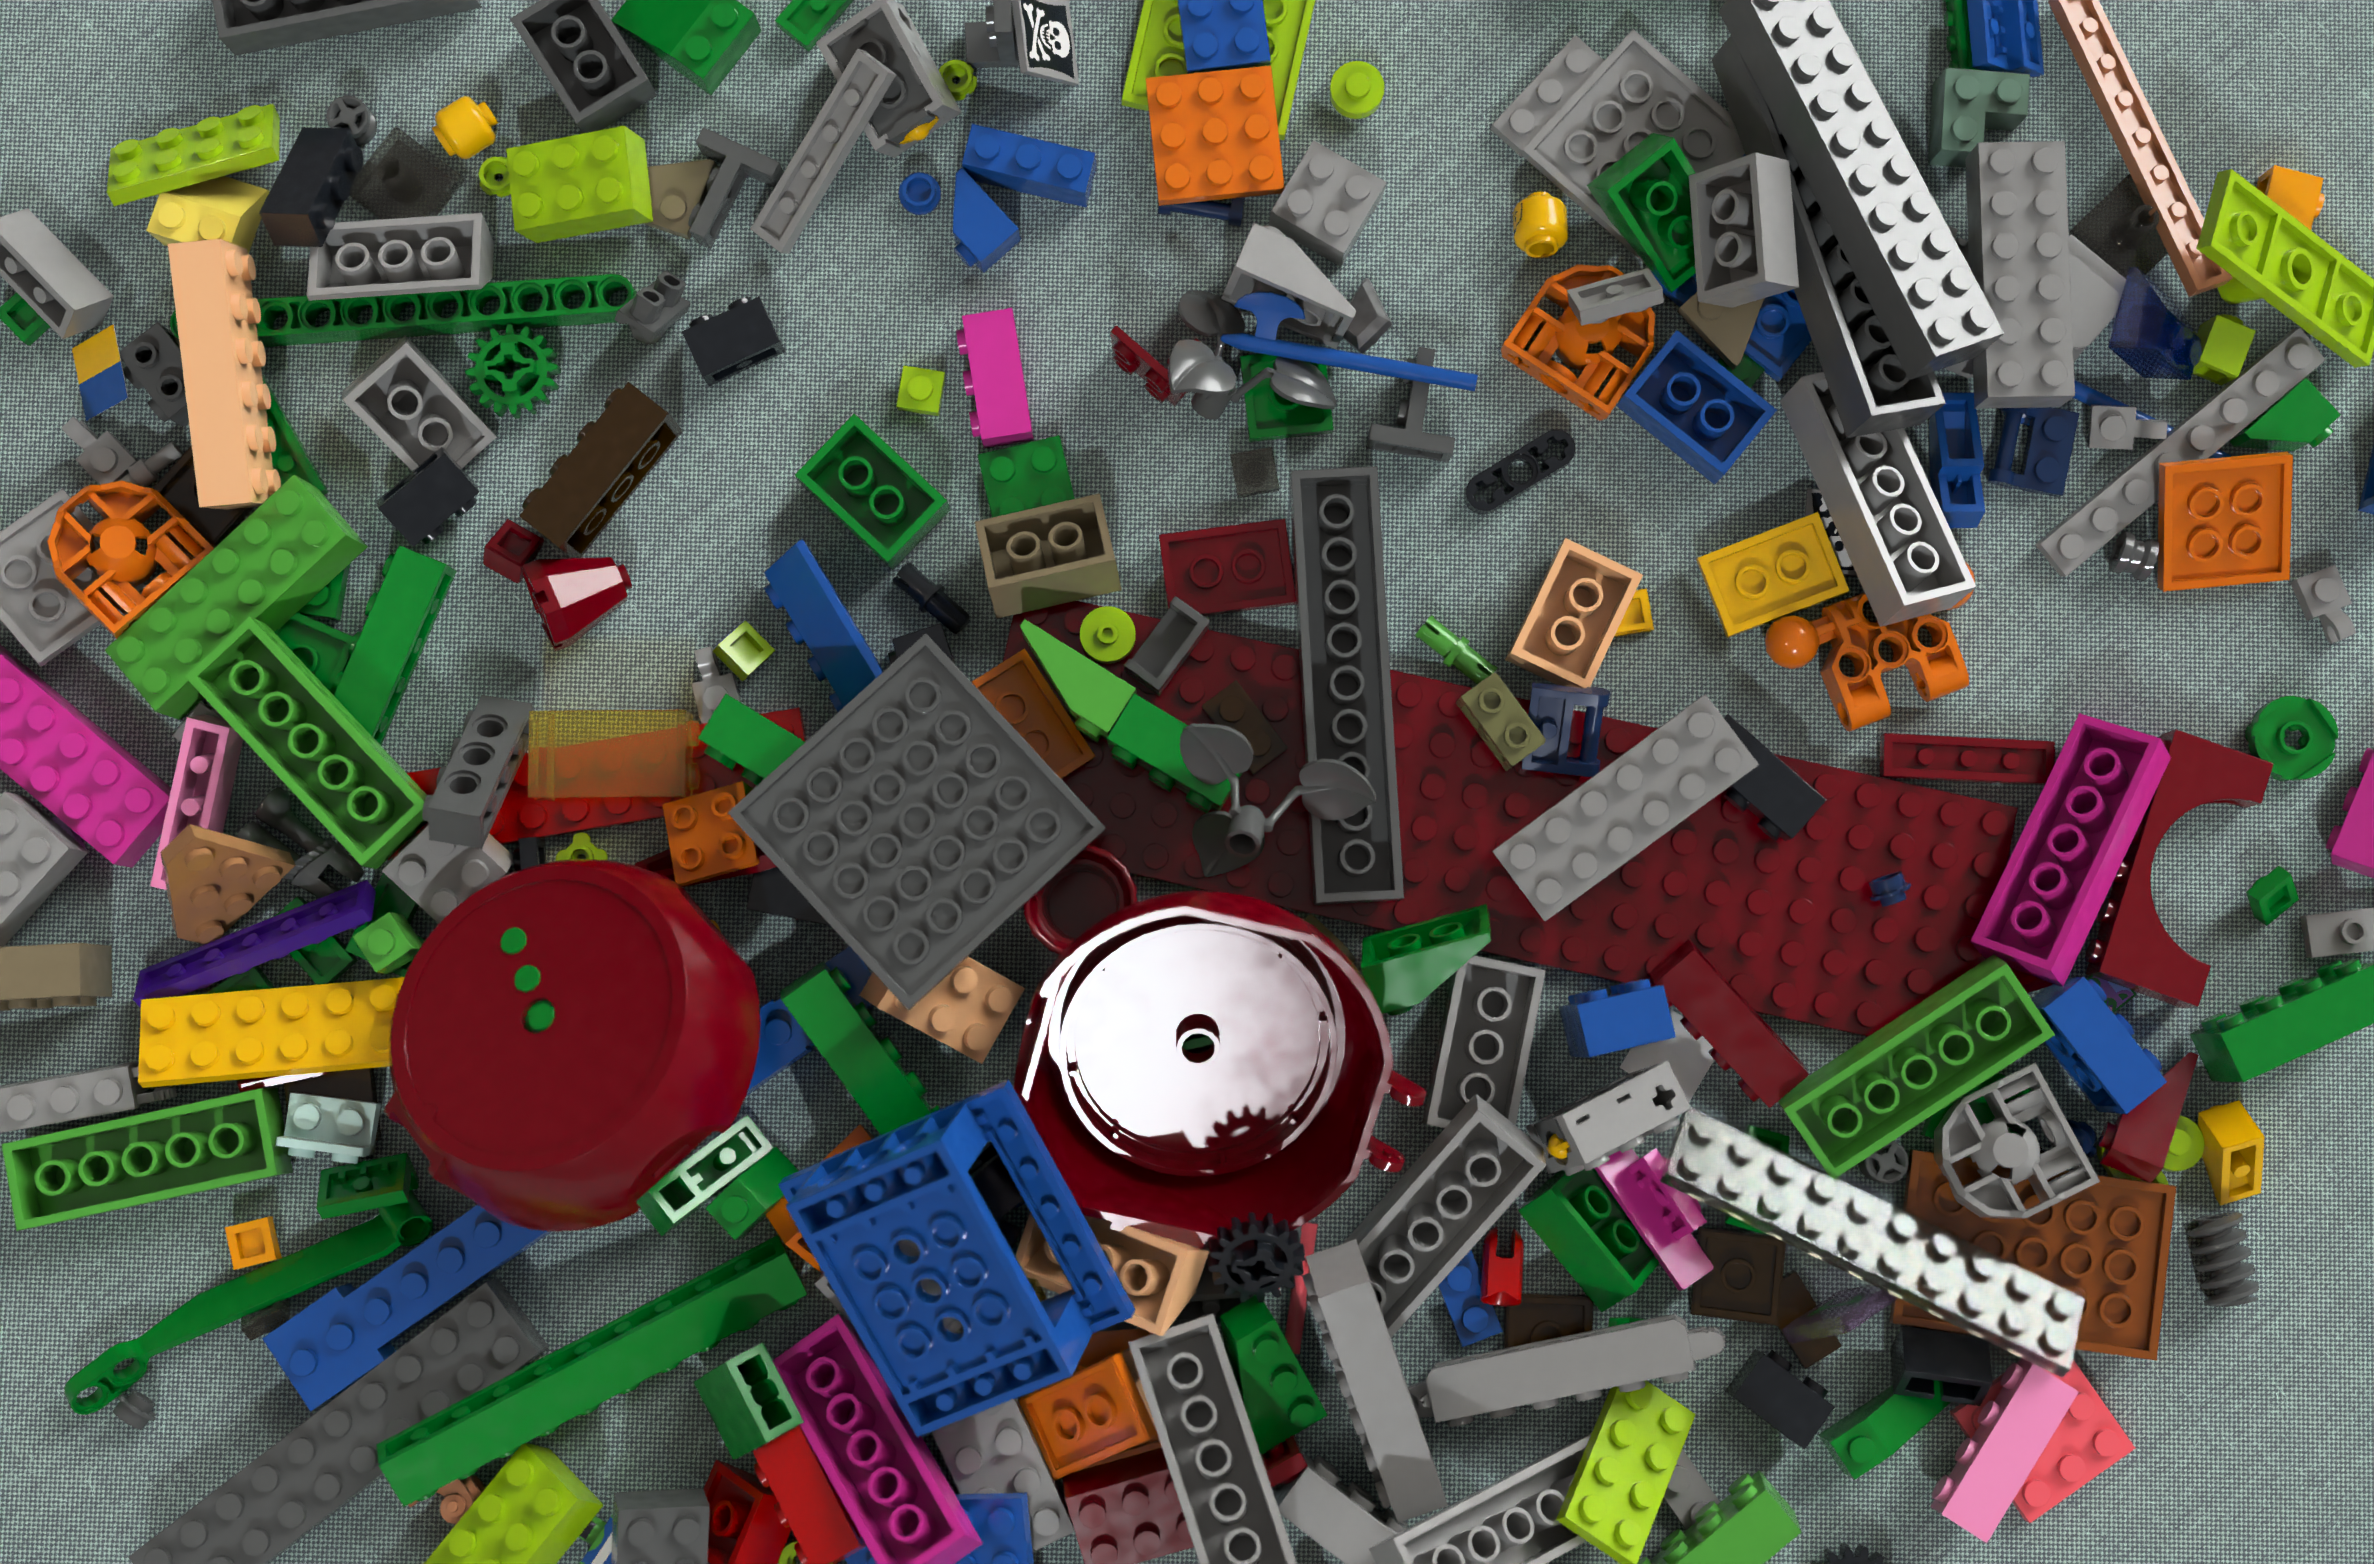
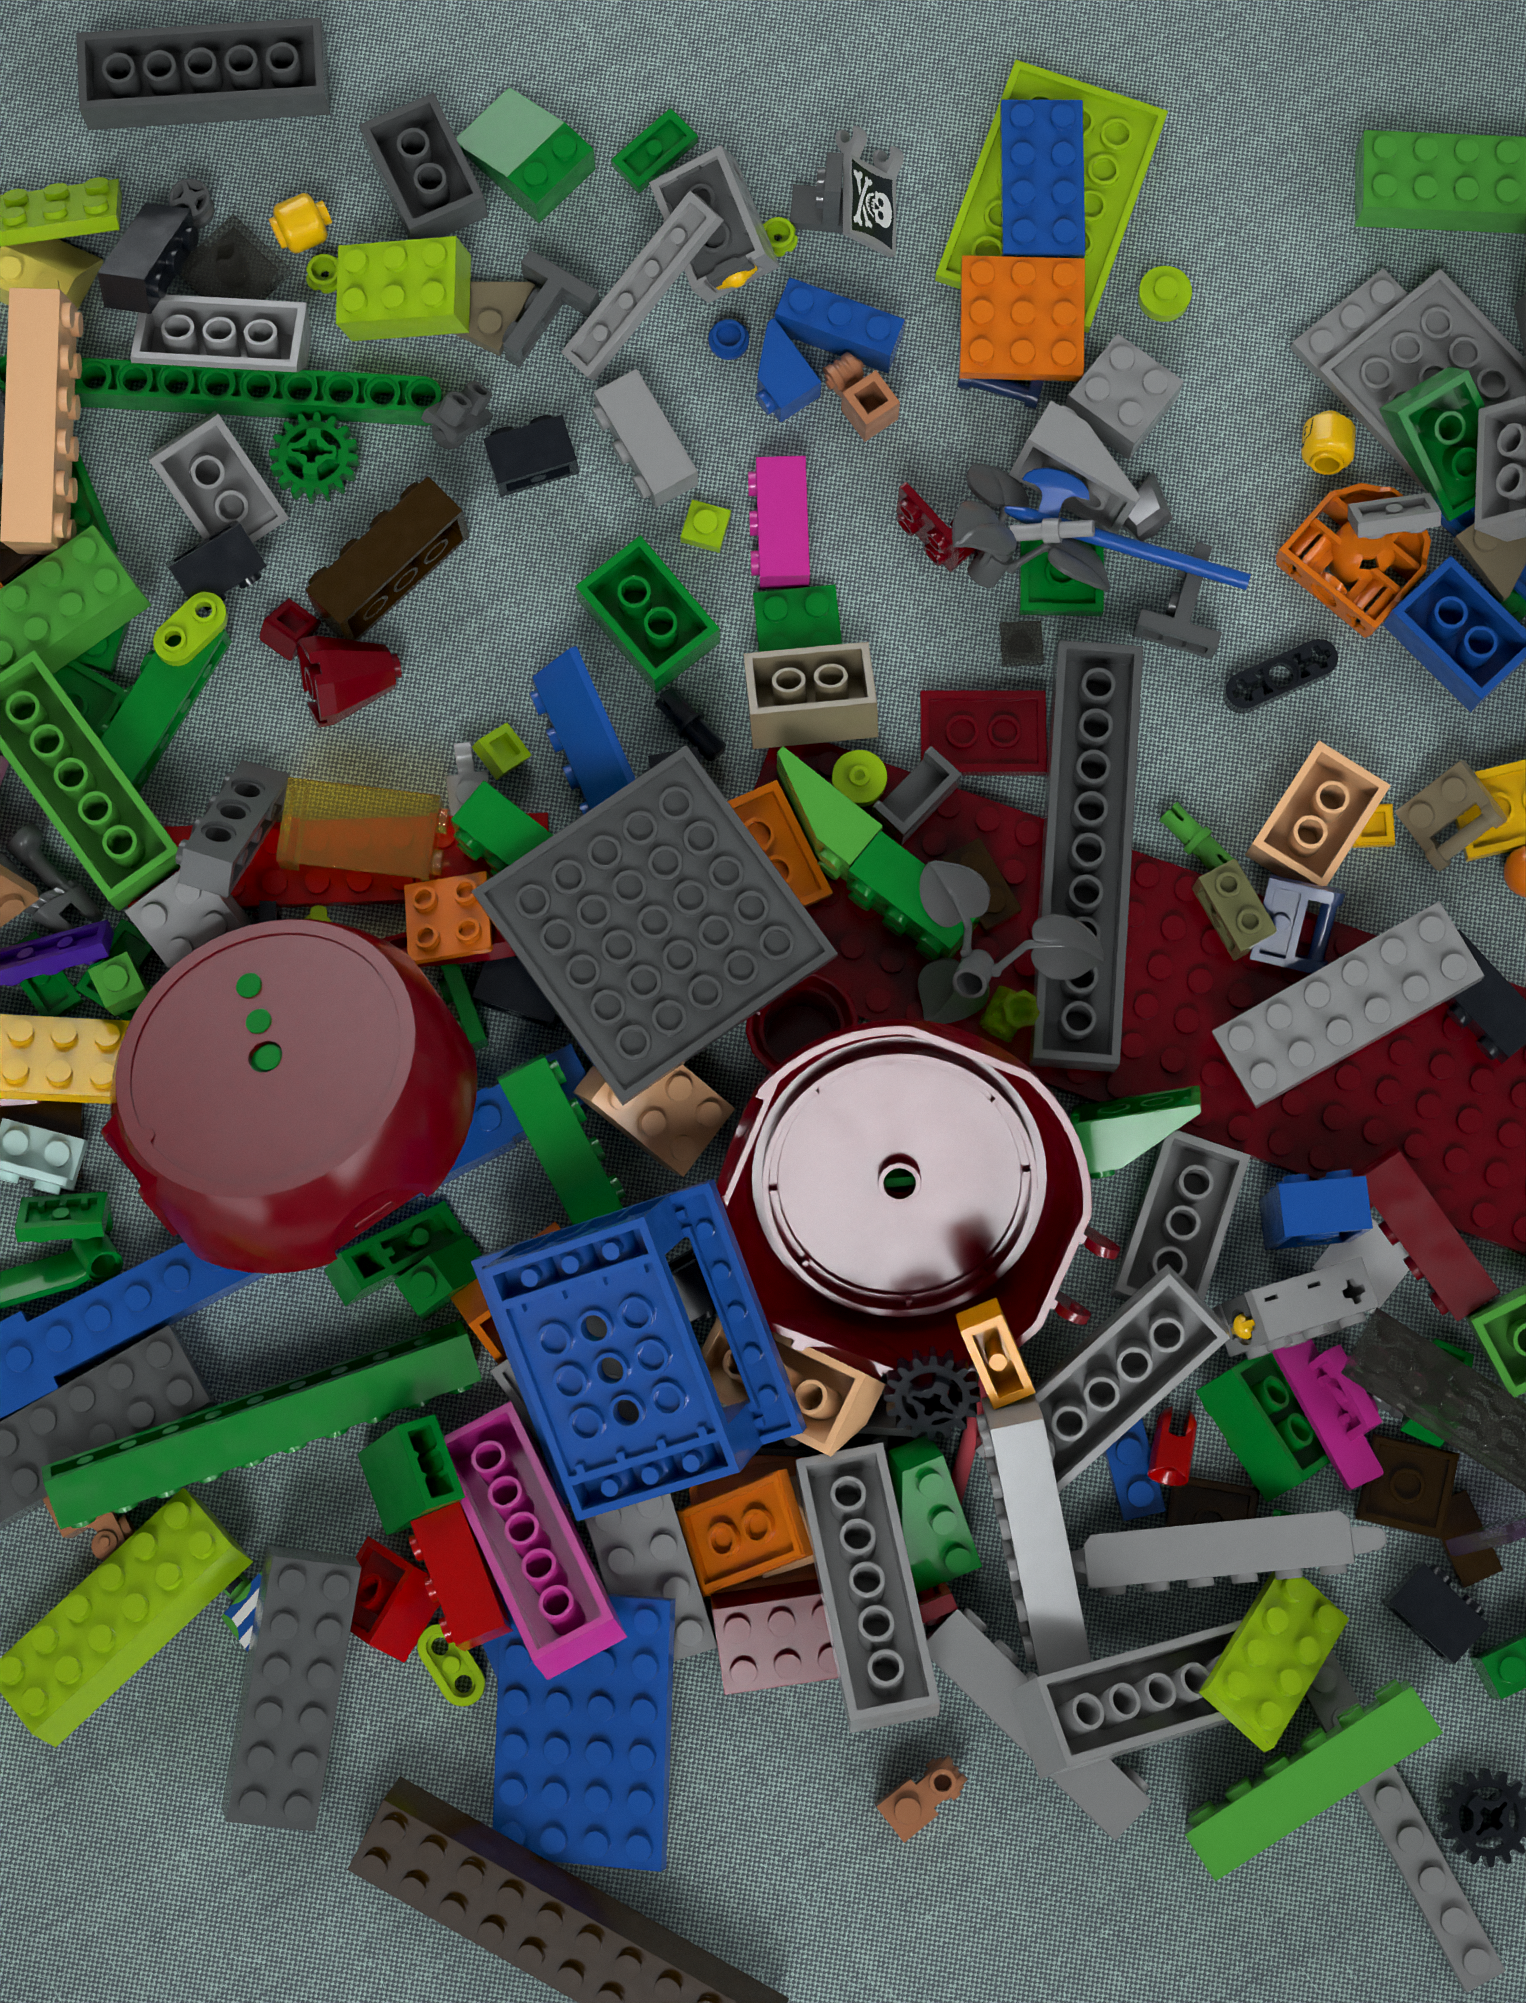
camera: 10 degrees right, 5 degrees down
(412, 570) = (193, 630): none -> lime plate
(747, 932) = (456, 990): none -> green plate
(846, 309) = (644, 439): none -> light grey brick
(1064, 240) = (865, 401): none -> nougat brick
(1271, 355) = (1053, 530): none -> light grey bar
(1287, 857) = (1009, 1012): none -> clear neon green piece
(1313, 1213) = (995, 1353): none -> light orange brick
(1696, 584) = (1441, 805): none -> dark tan plate

